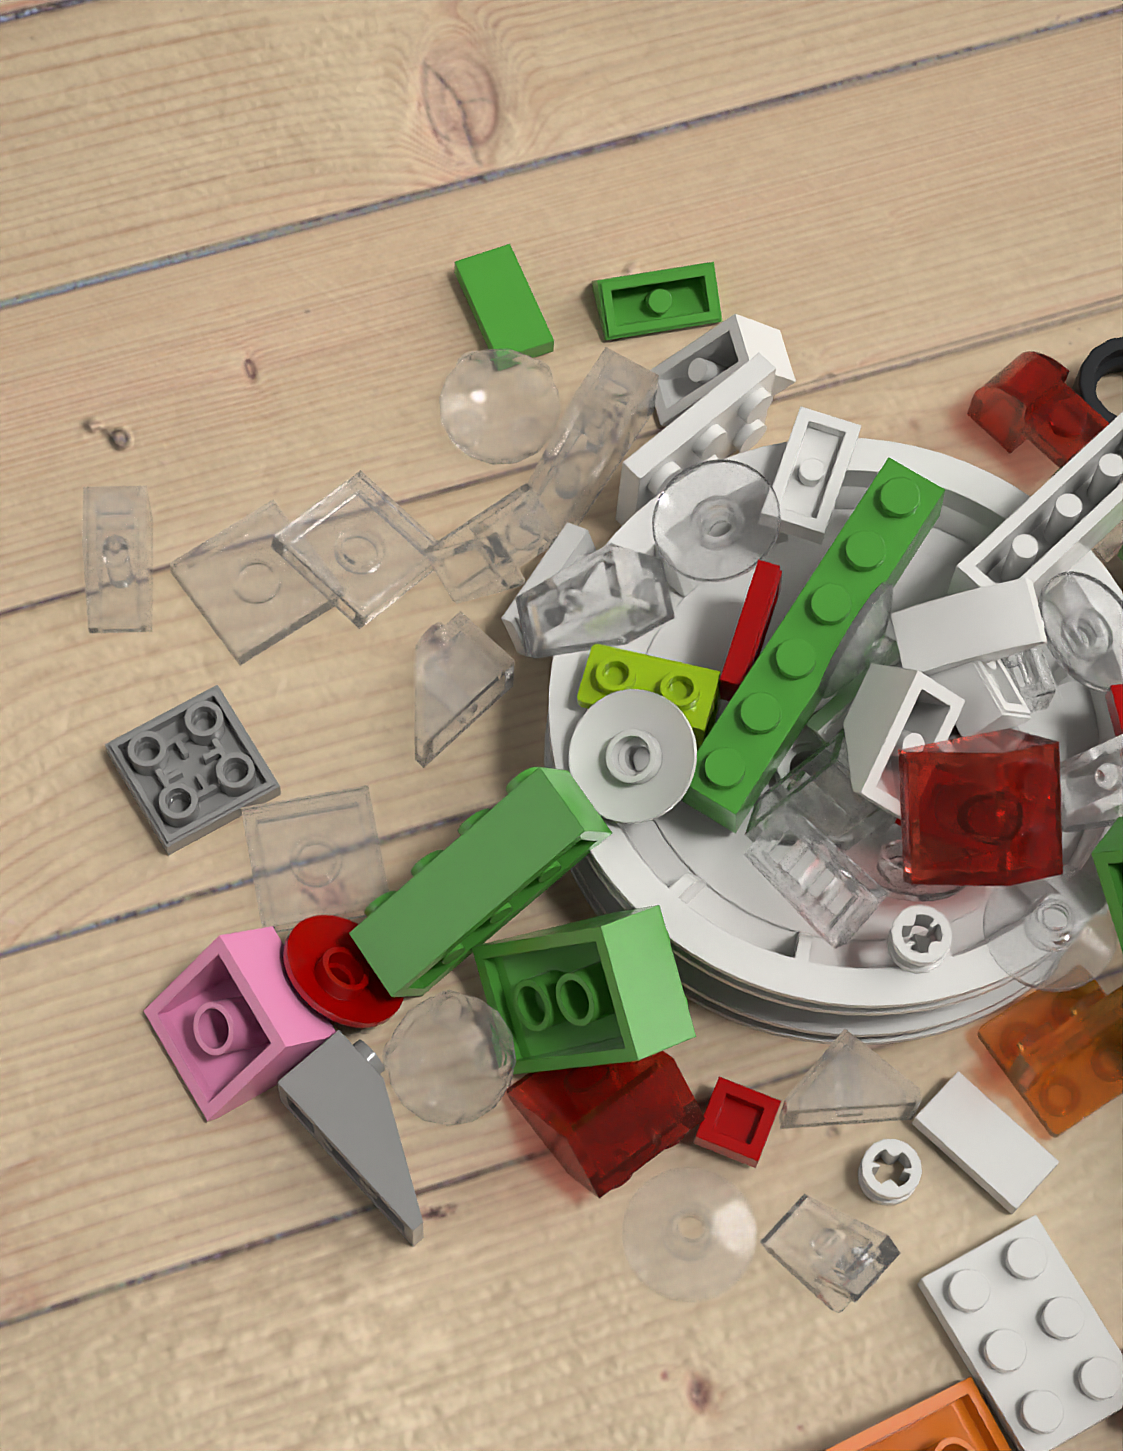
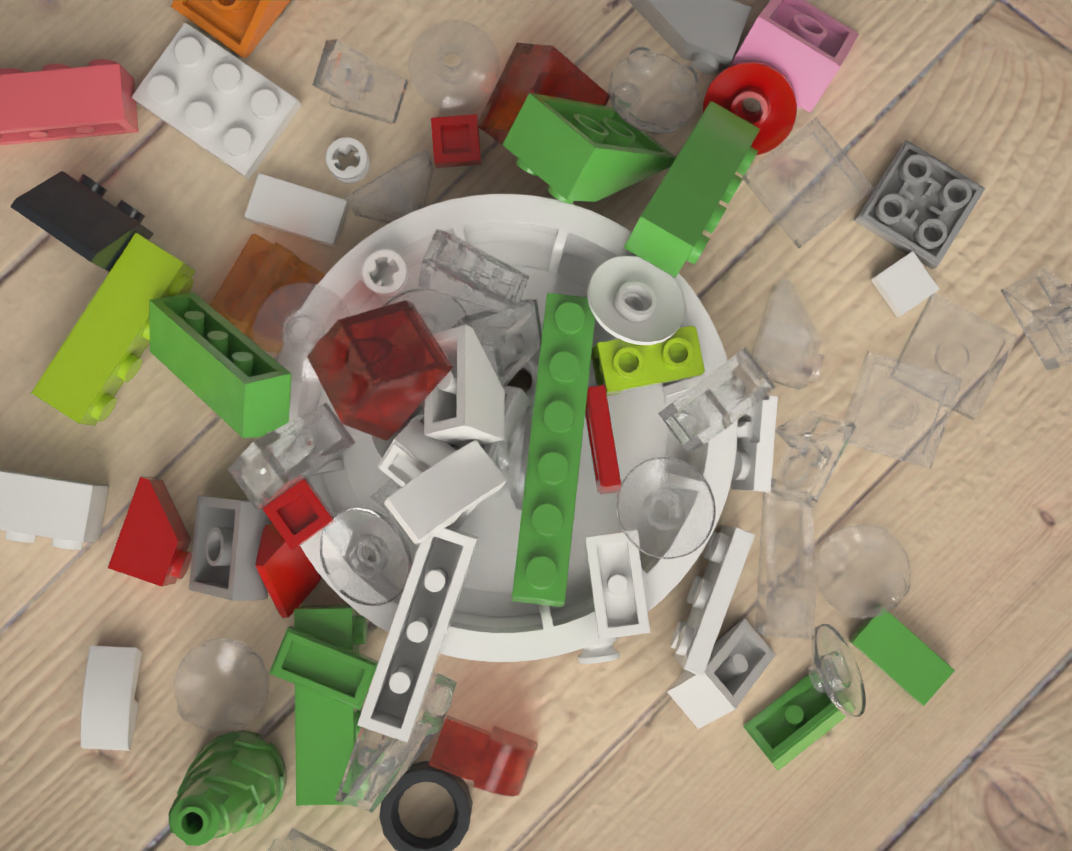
camera: 160 degrees right, 20 degrees up
(266, 686) = (905, 284): none -> white tile
(591, 312) = (837, 671): none -> clear dish

